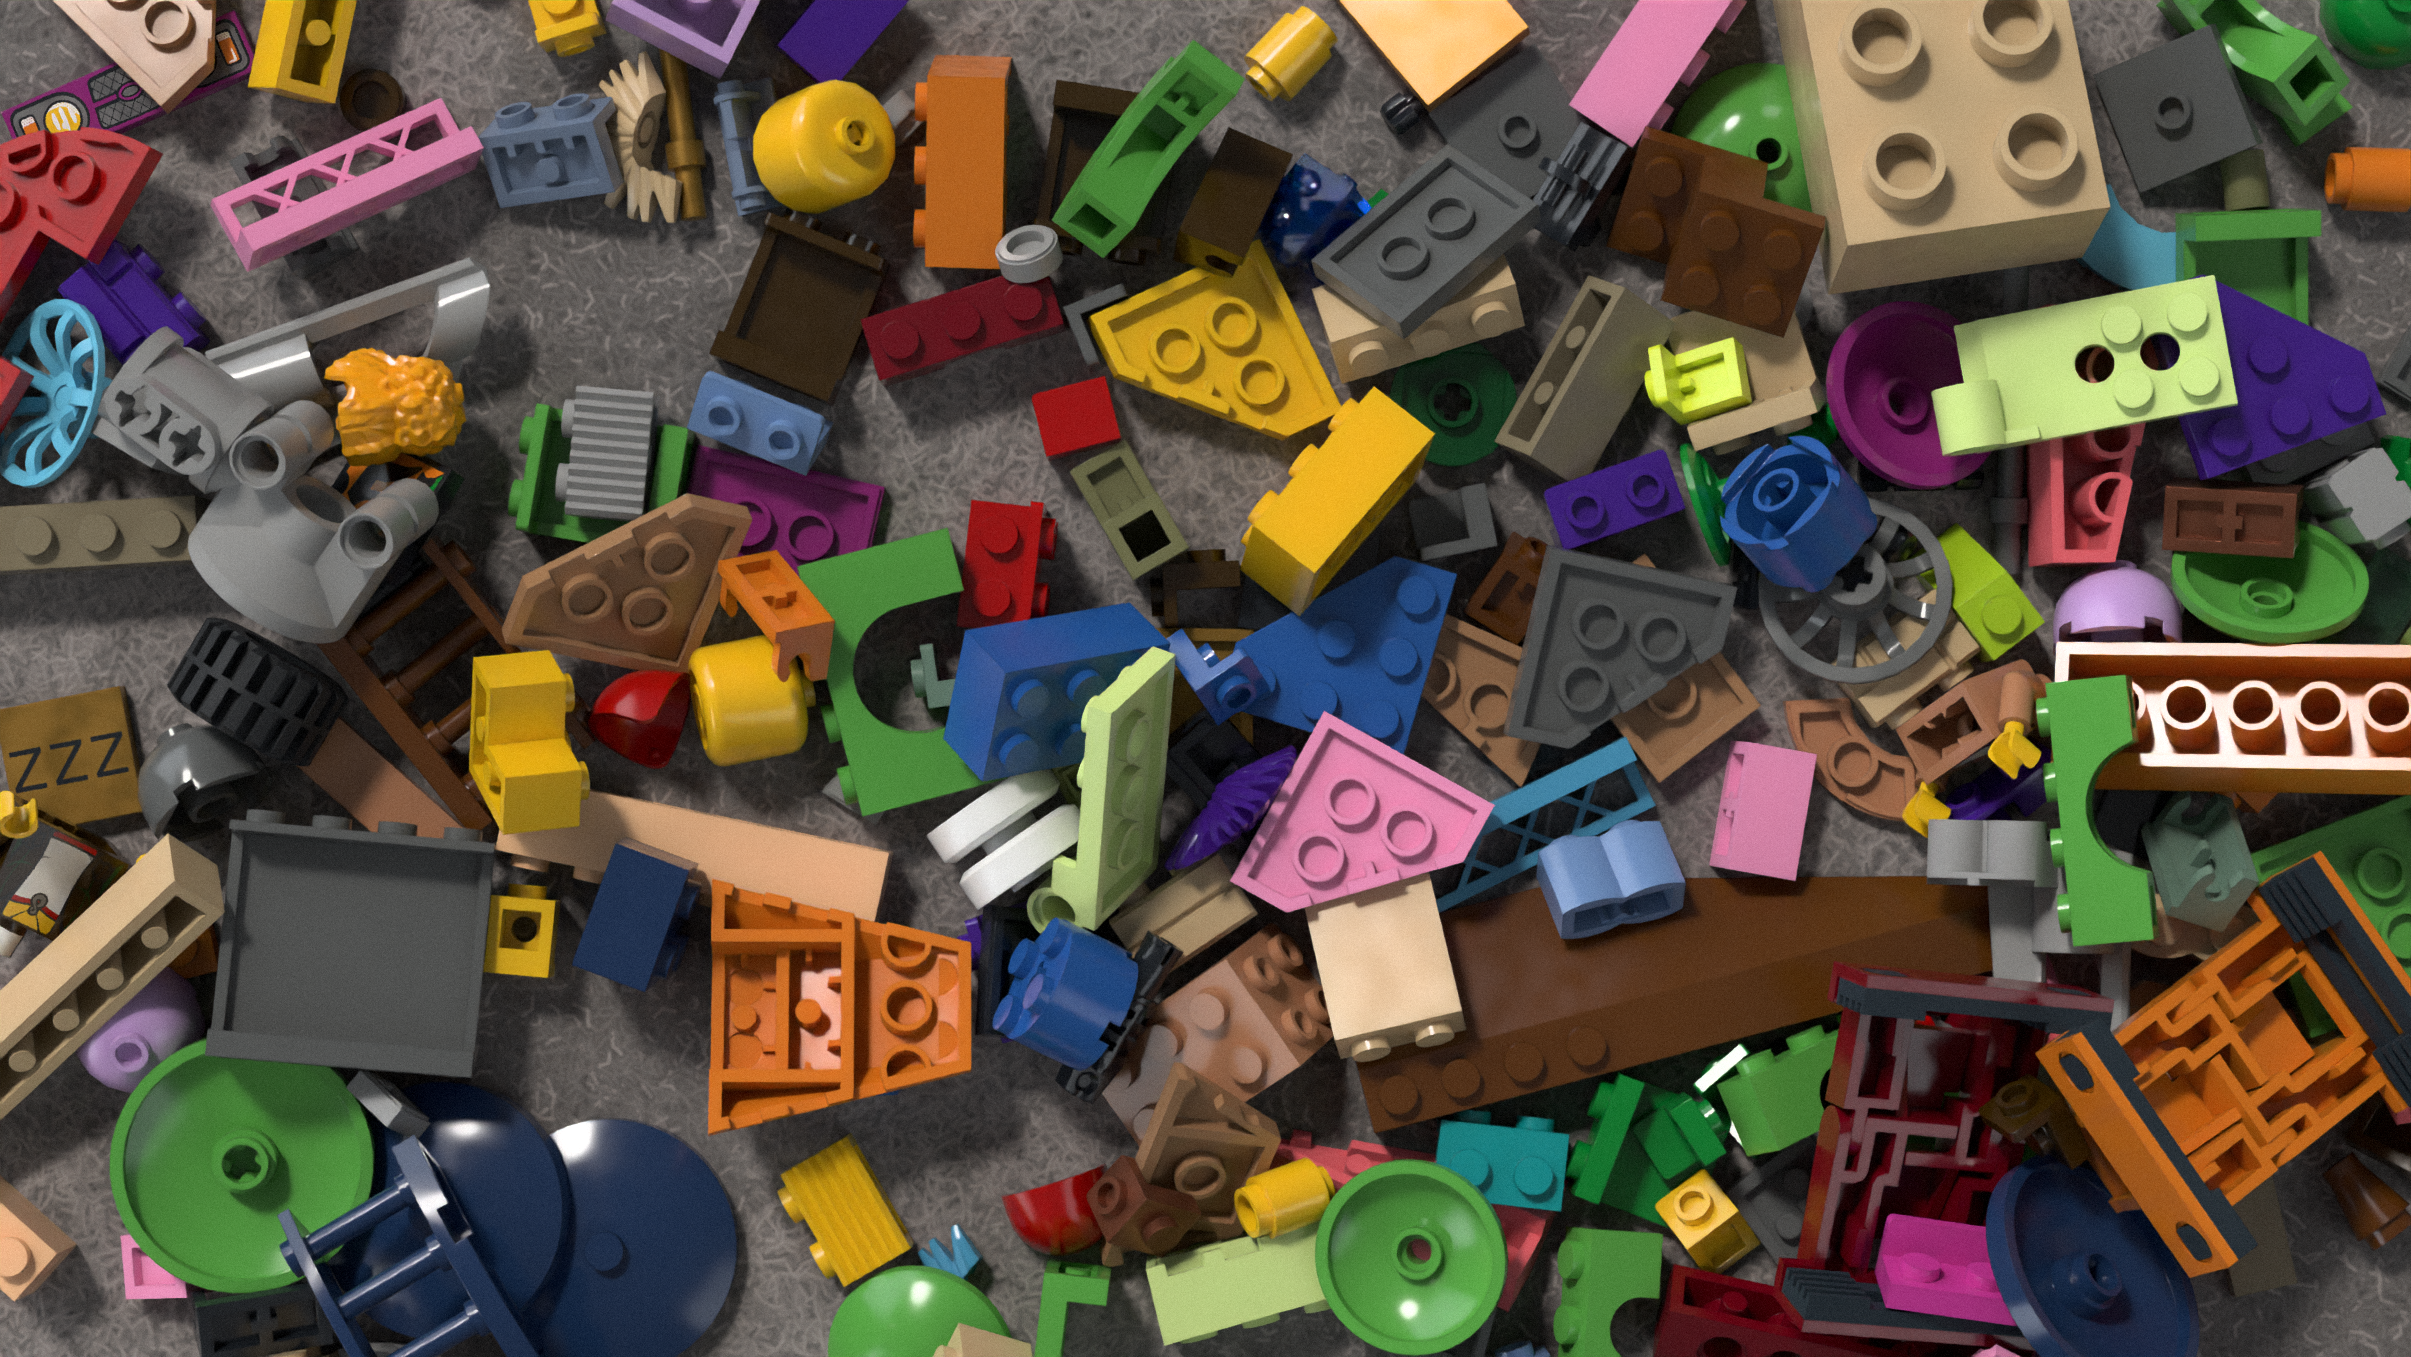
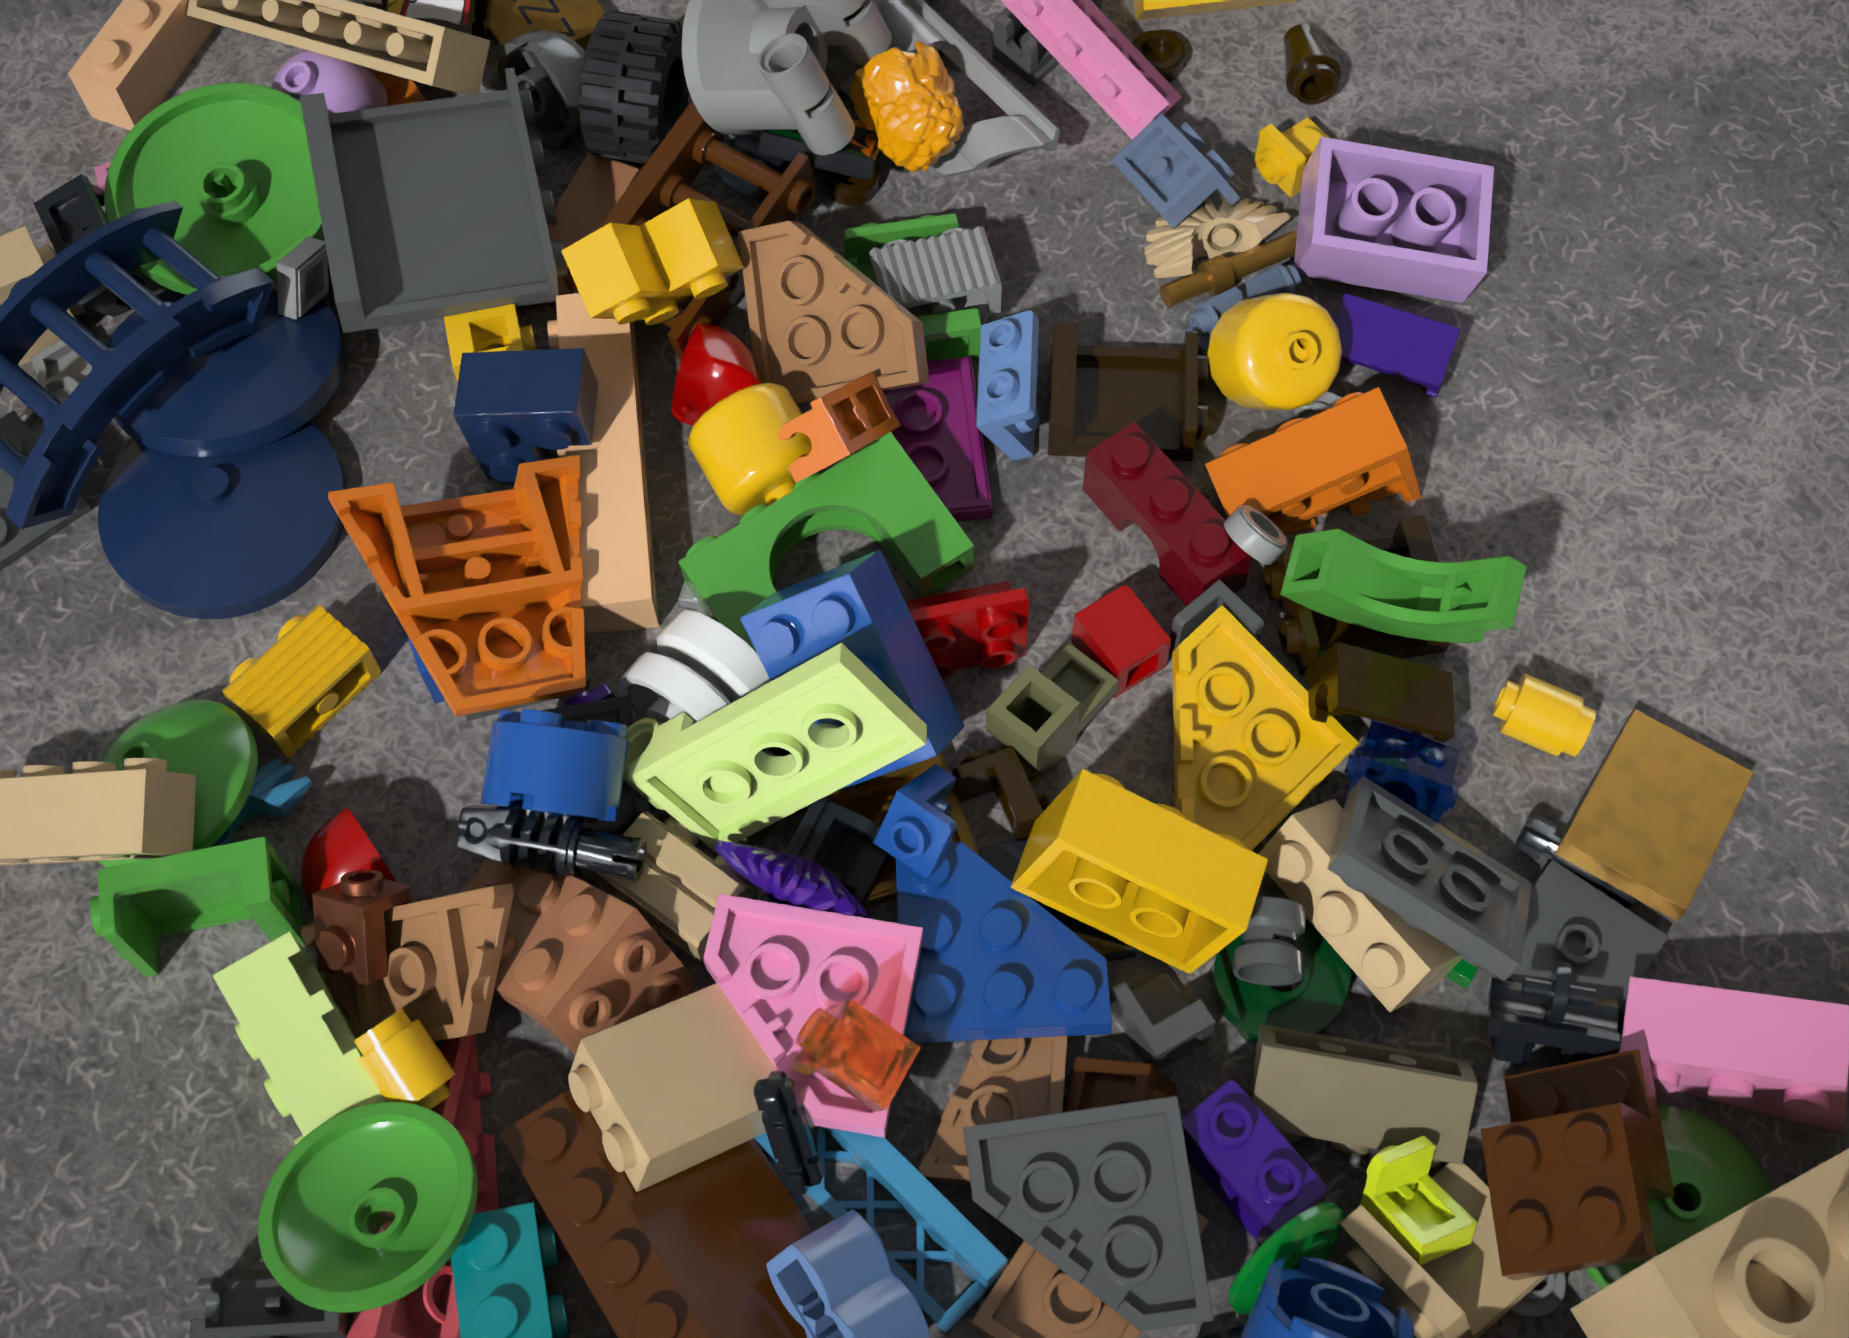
camera: 70 degrees right, 25 degrees down
(1428, 810) = (855, 1052): none -> clear orange bracket
(1435, 404) = (1270, 944): none -> dark grey wheel
(1459, 885) = (788, 1132): none -> black axle

